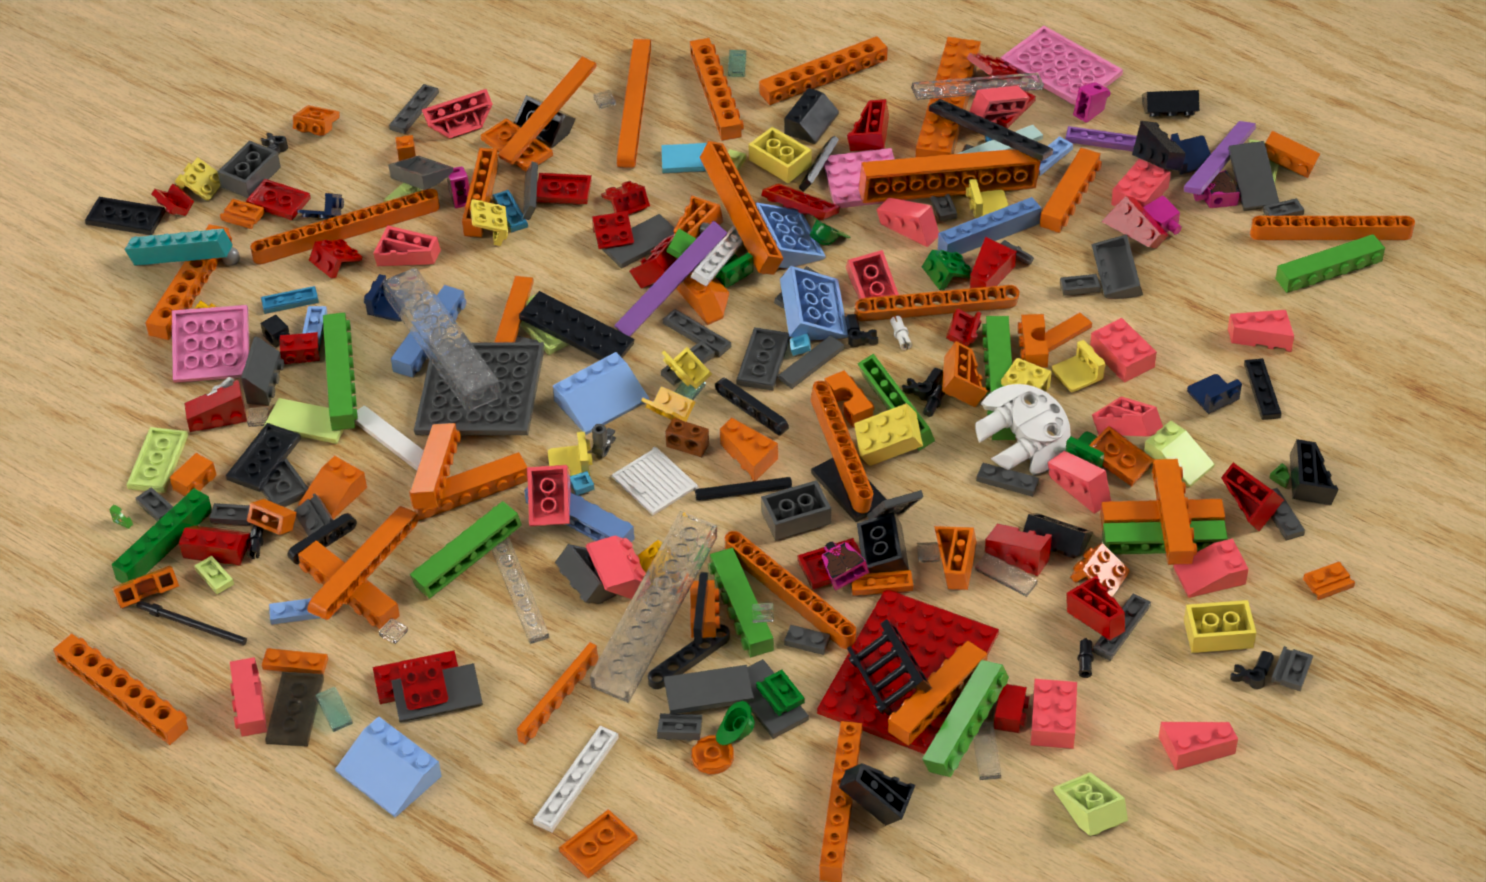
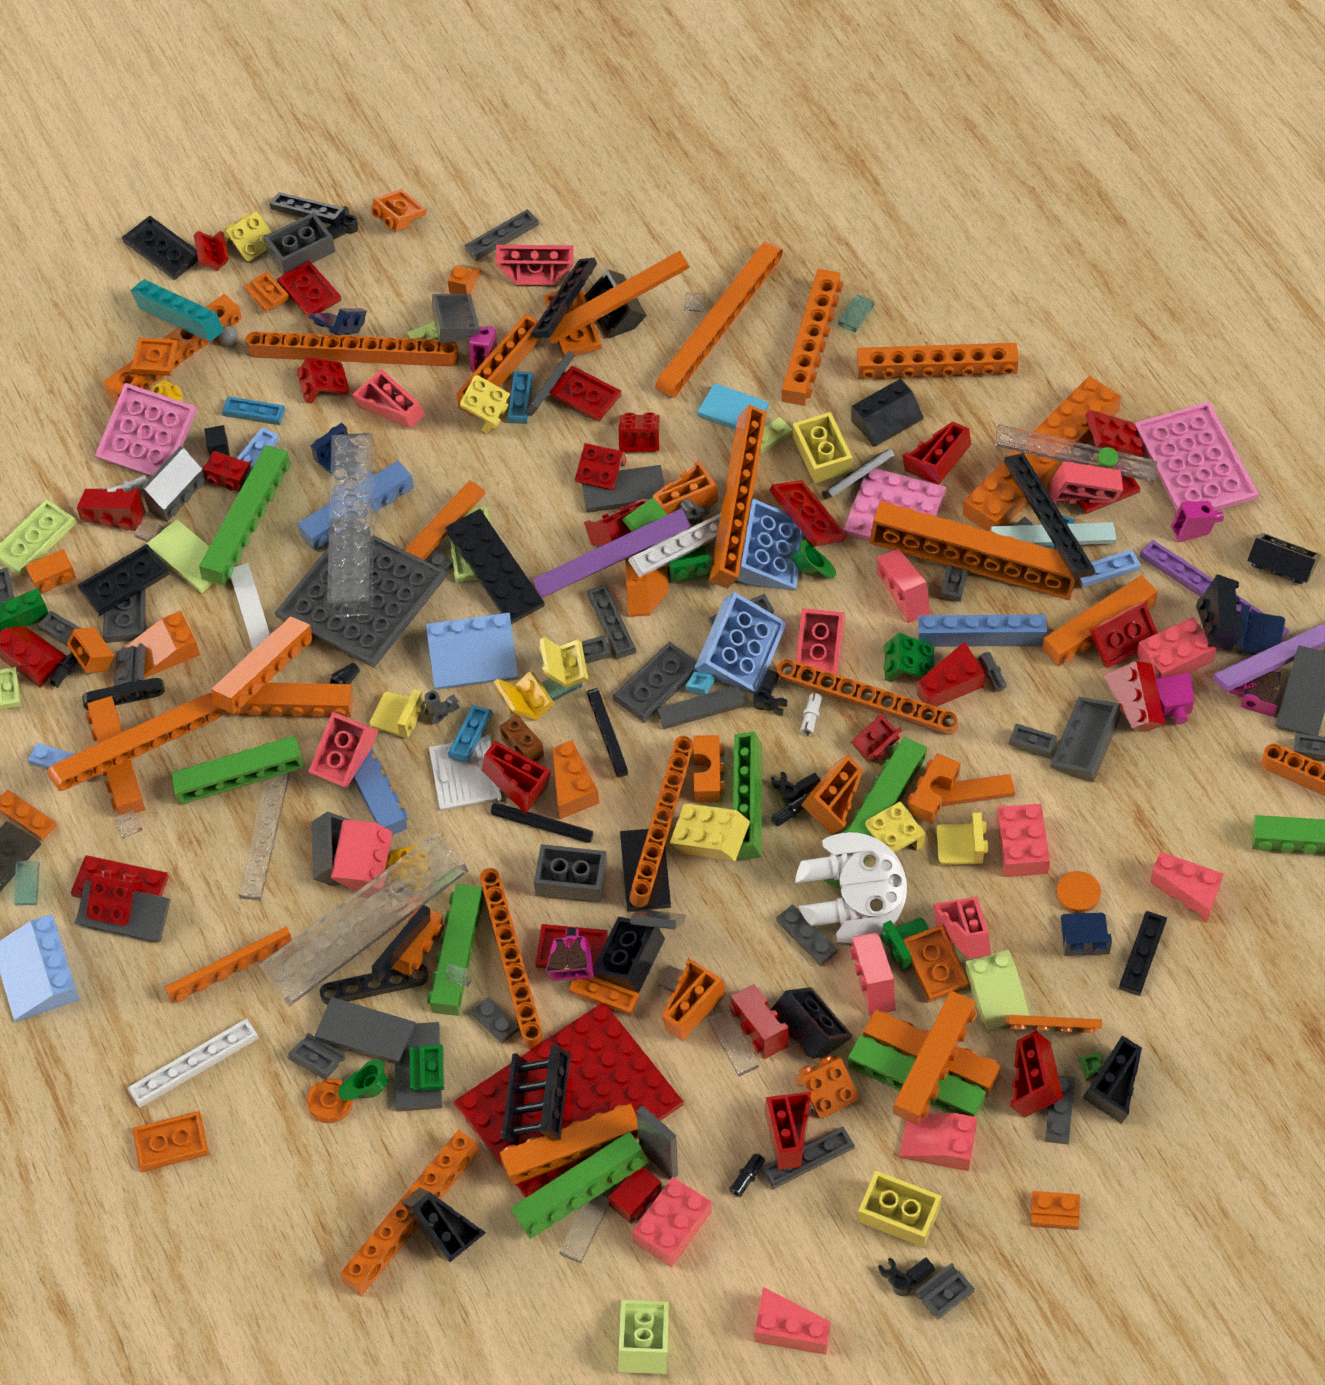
camera: 30 degrees right, 10 degrees up
(182, 286) = (154, 356): none -> orange plate
(234, 144) = (303, 207): none -> black plate
(503, 127) = (564, 298): none -> black plate
(506, 449) = (345, 675): none -> black cone
(581, 483) = (393, 744): medium azure plate -> none
(640, 451) = (470, 733): none -> dark azure tile
(701, 460) = (515, 775): none -> red wedge
(986, 201) = (1000, 596): light yellow bracket -> none
(1003, 79) = (1107, 457): none -> bright green tile
(1014, 650) = (657, 1142): none -> dark grey tile
(1096, 190) = (1121, 634): none -> red plate
(1186, 368) = (1078, 891): none -> orange tile
(1238, 454) = (1061, 1024): none -> orange plate

